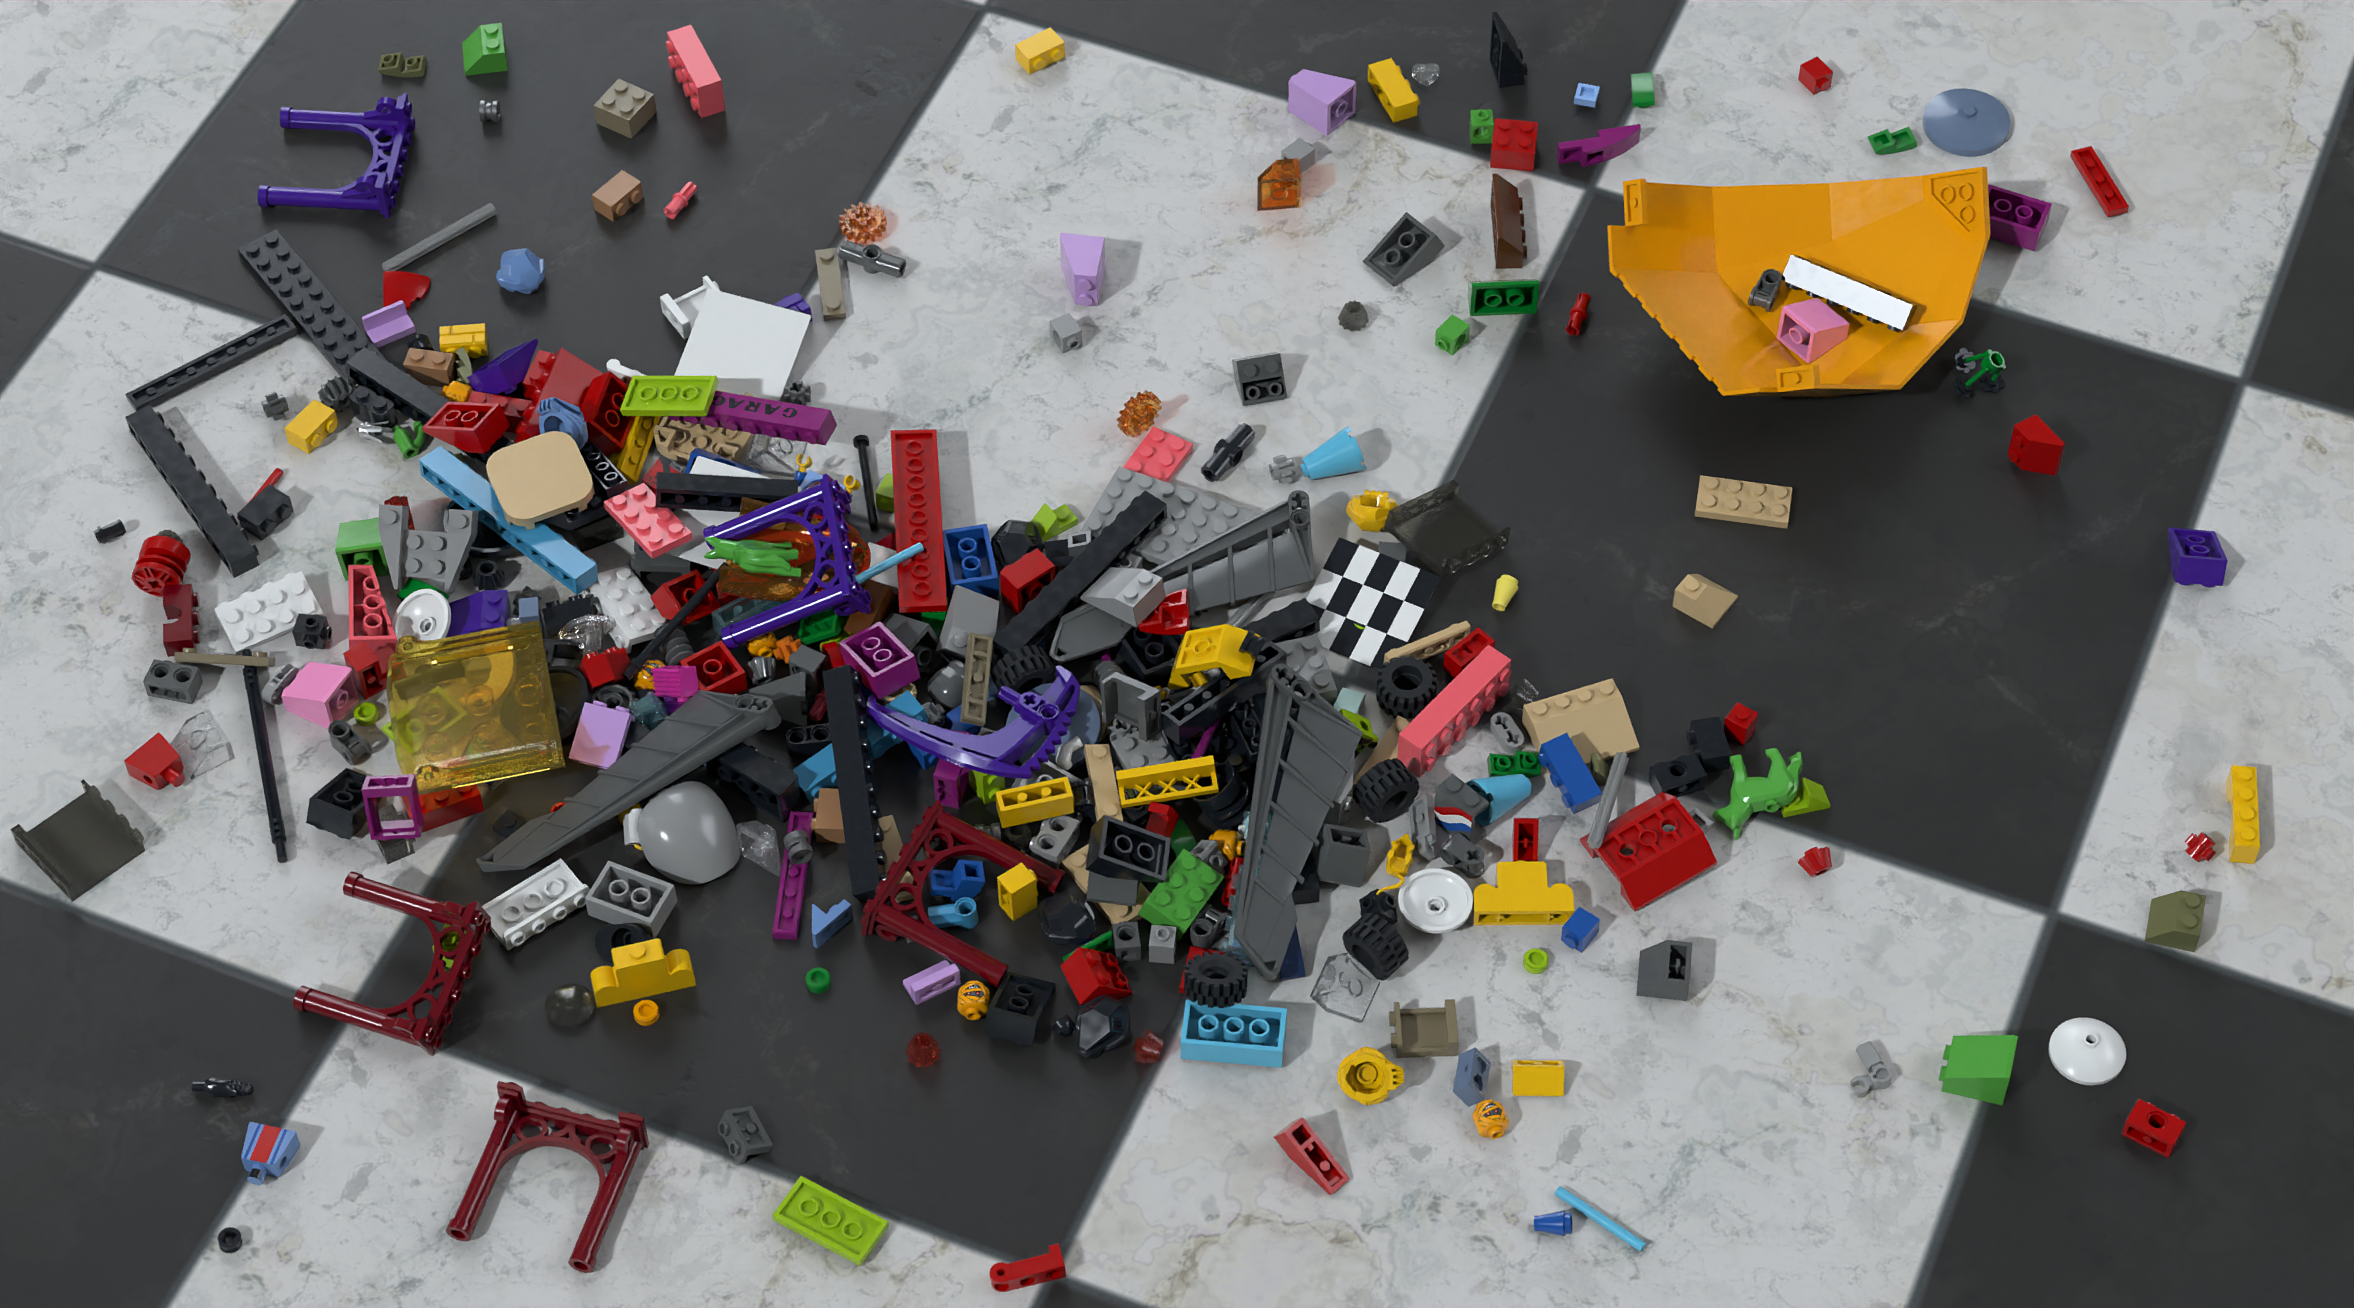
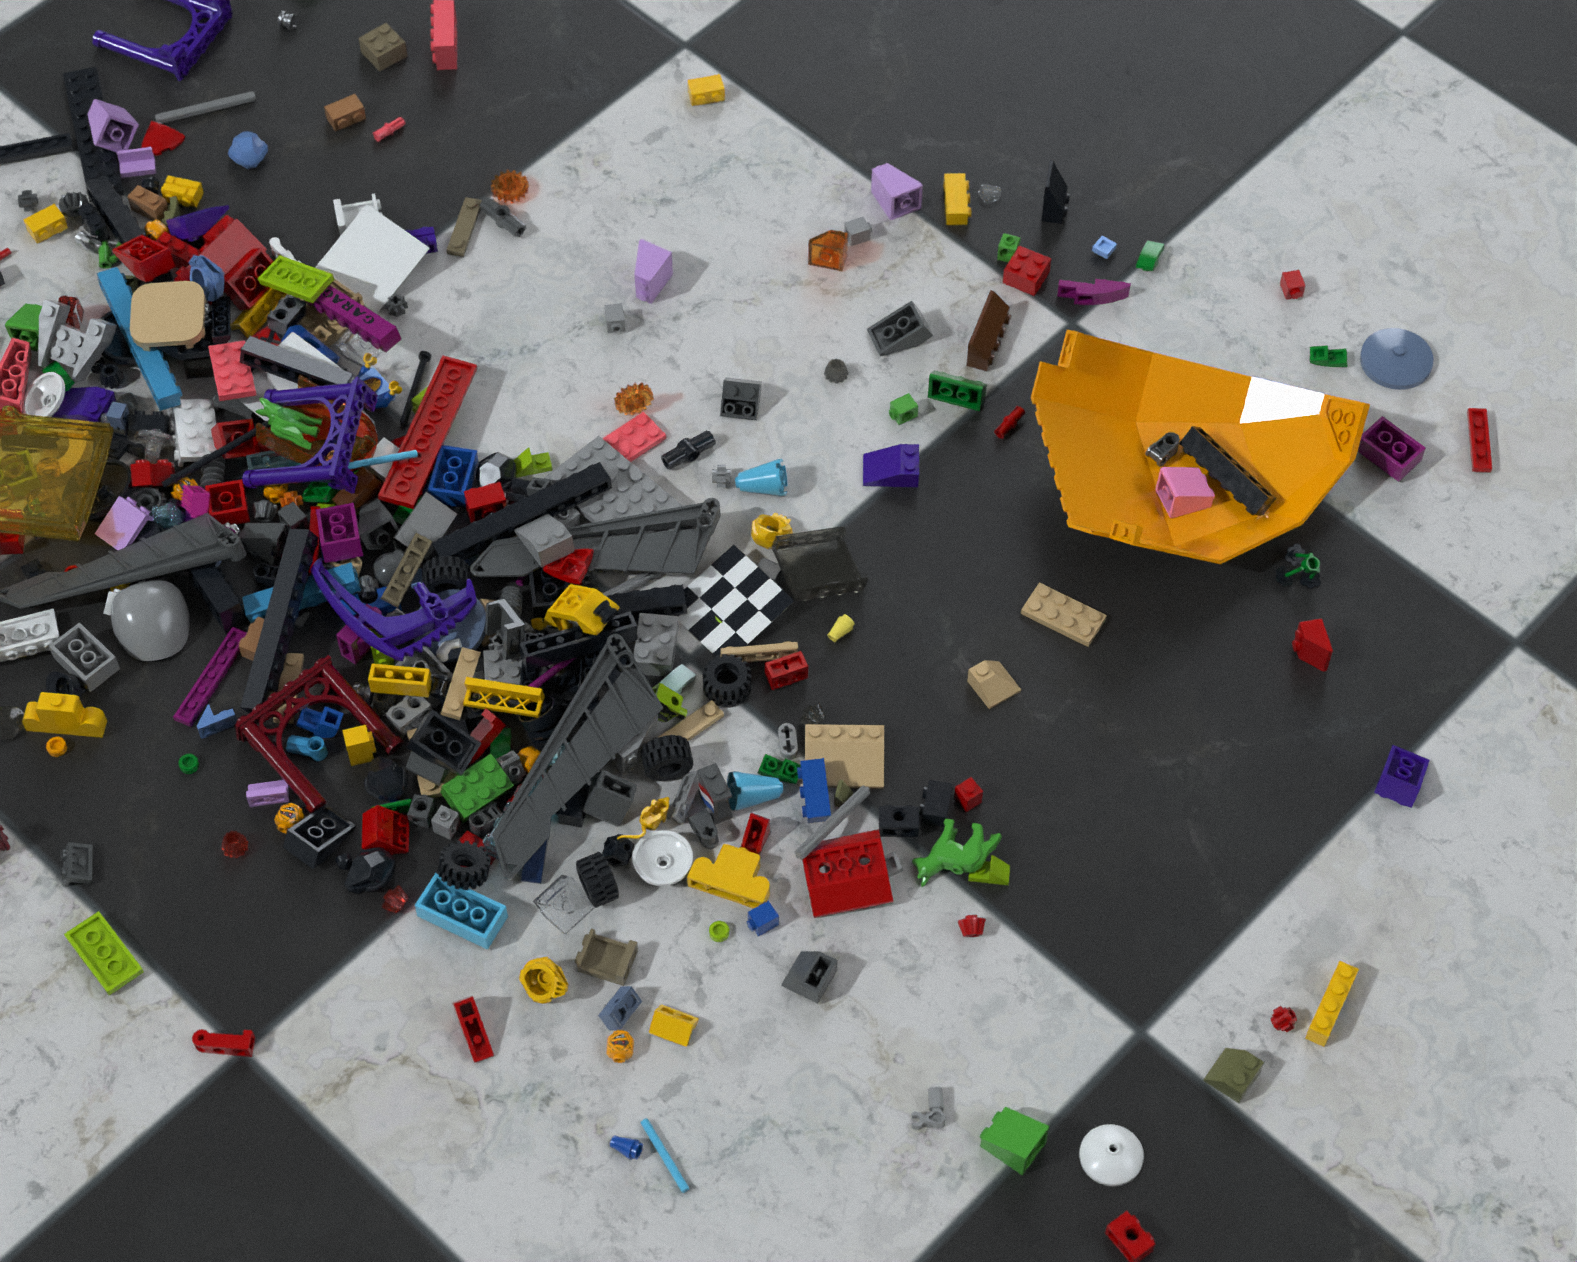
camera: 20 degrees right, 5 degrees up
(339, 290) = (111, 126): none -> lavender slope
(675, 441) = (286, 314): none -> black brick
(759, 845) = (197, 644): clear slope -> none
(798, 847) = (220, 657): flat silver wheel -> none
(1454, 711) = (751, 711): coral brick -> none
(1472, 400) = (892, 466): none -> dark purple slope

